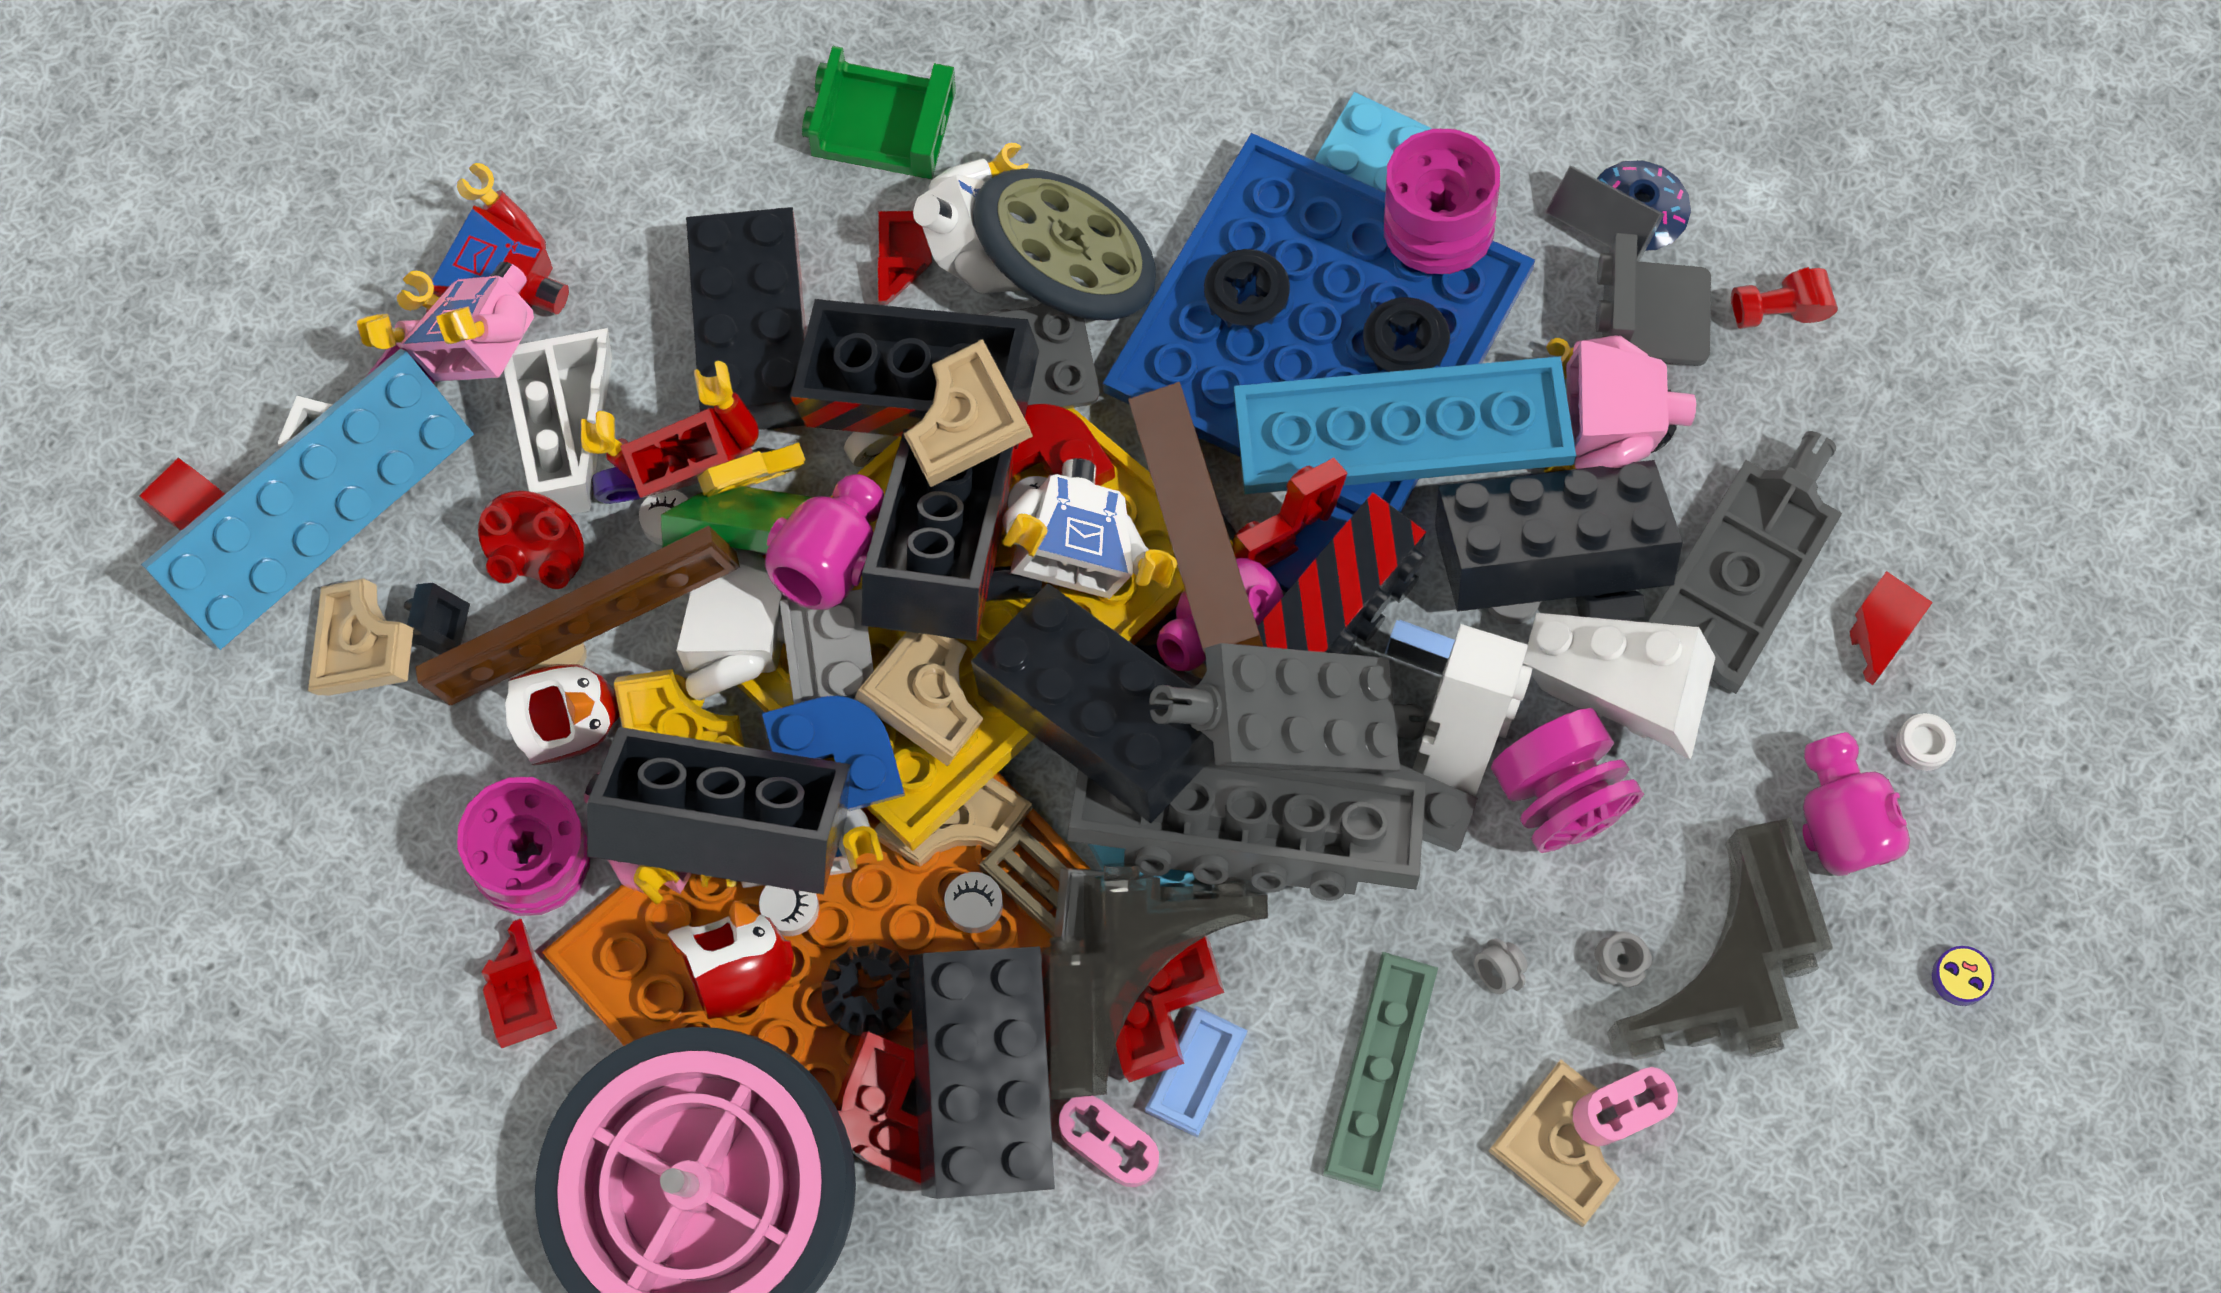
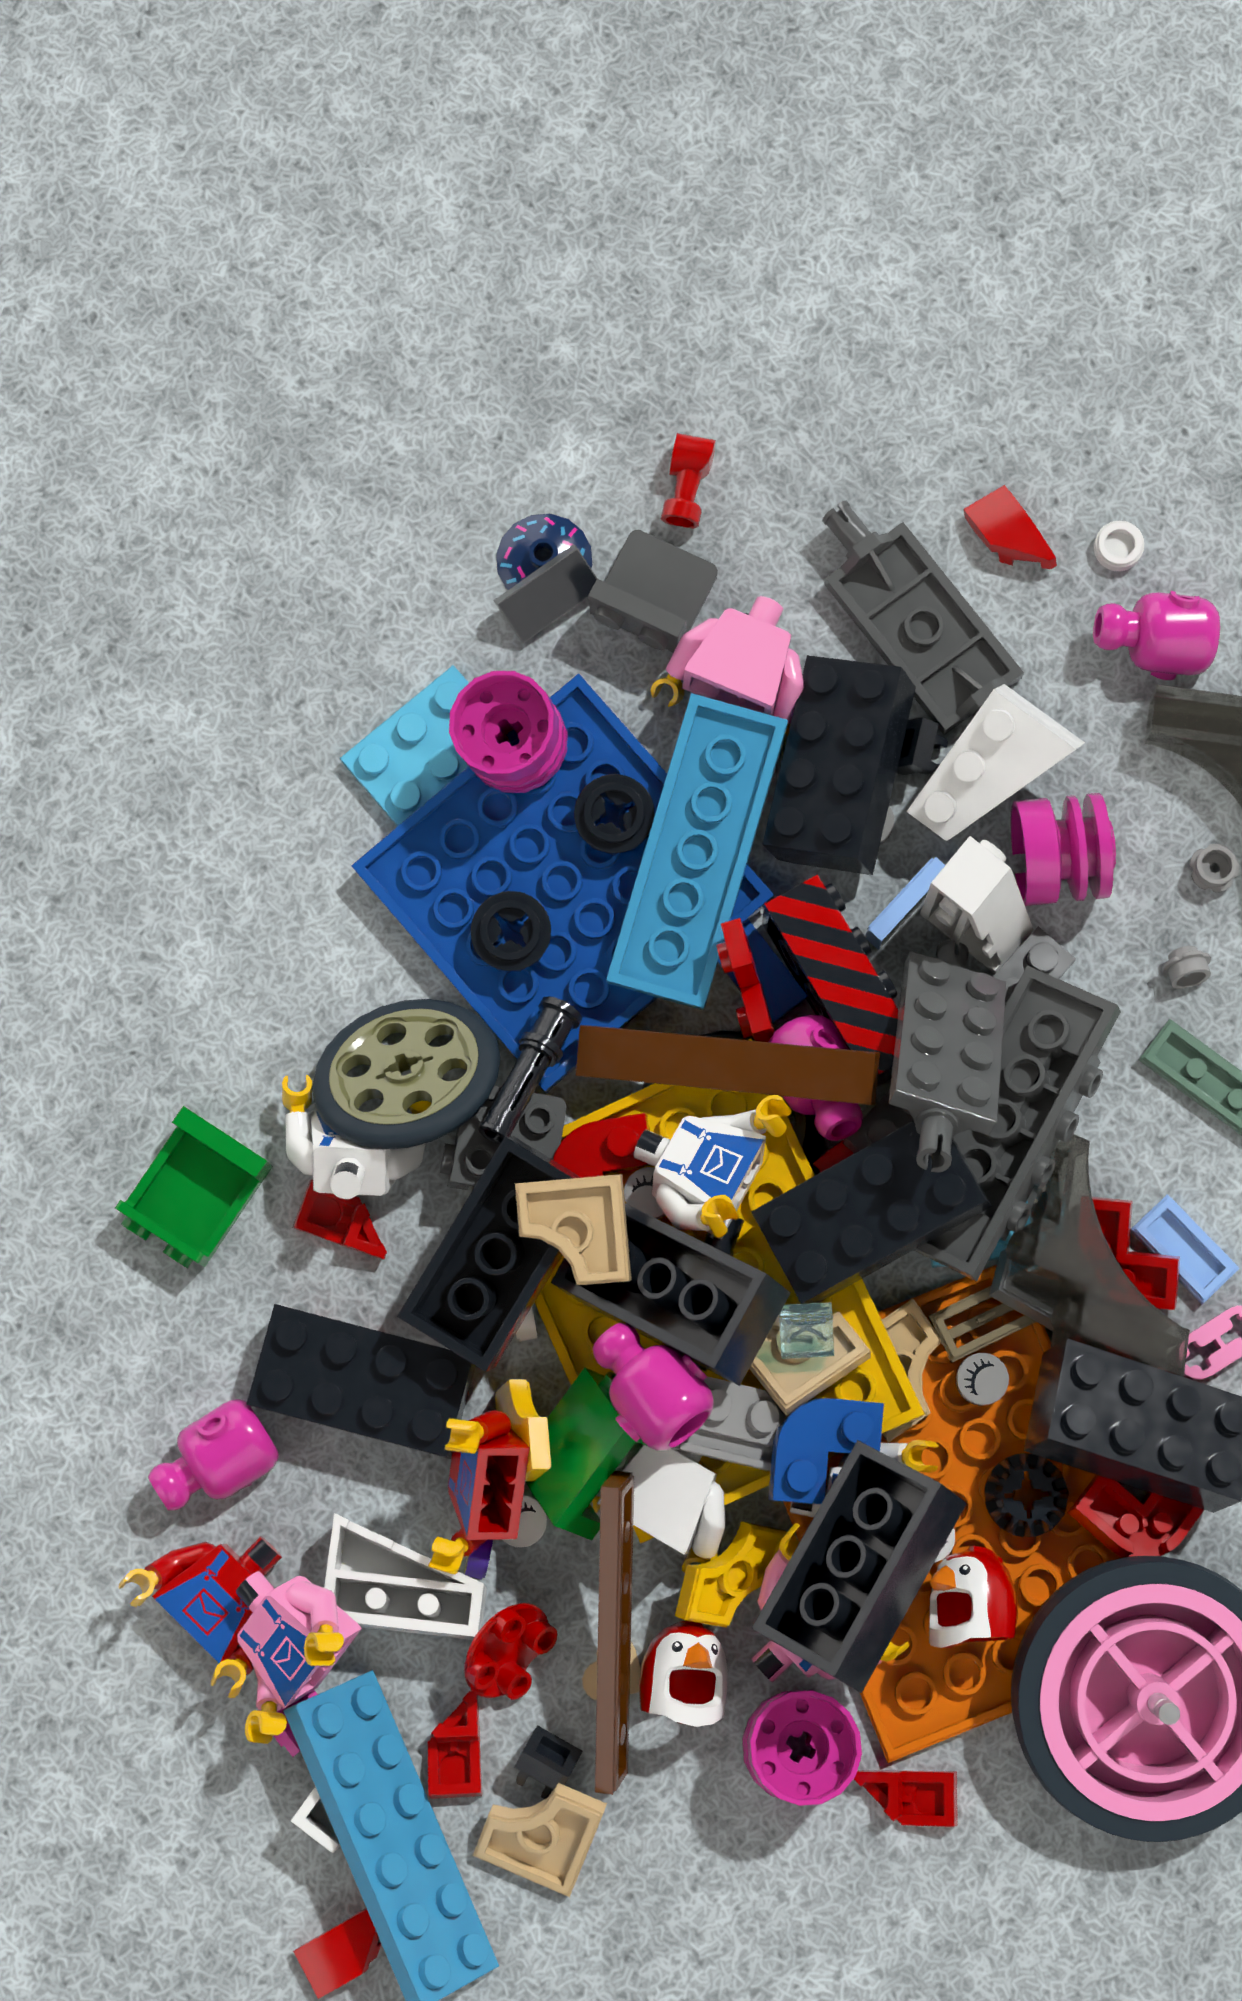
camera: 60 degrees left, 10 degrees up
(417, 538) = (456, 1753): none -> red slope
(628, 219) = (219, 1454): none -> dark pink piece
(946, 679) = (806, 1330): none -> clear light blue tile
(1139, 342) = (539, 1051): none -> black pin

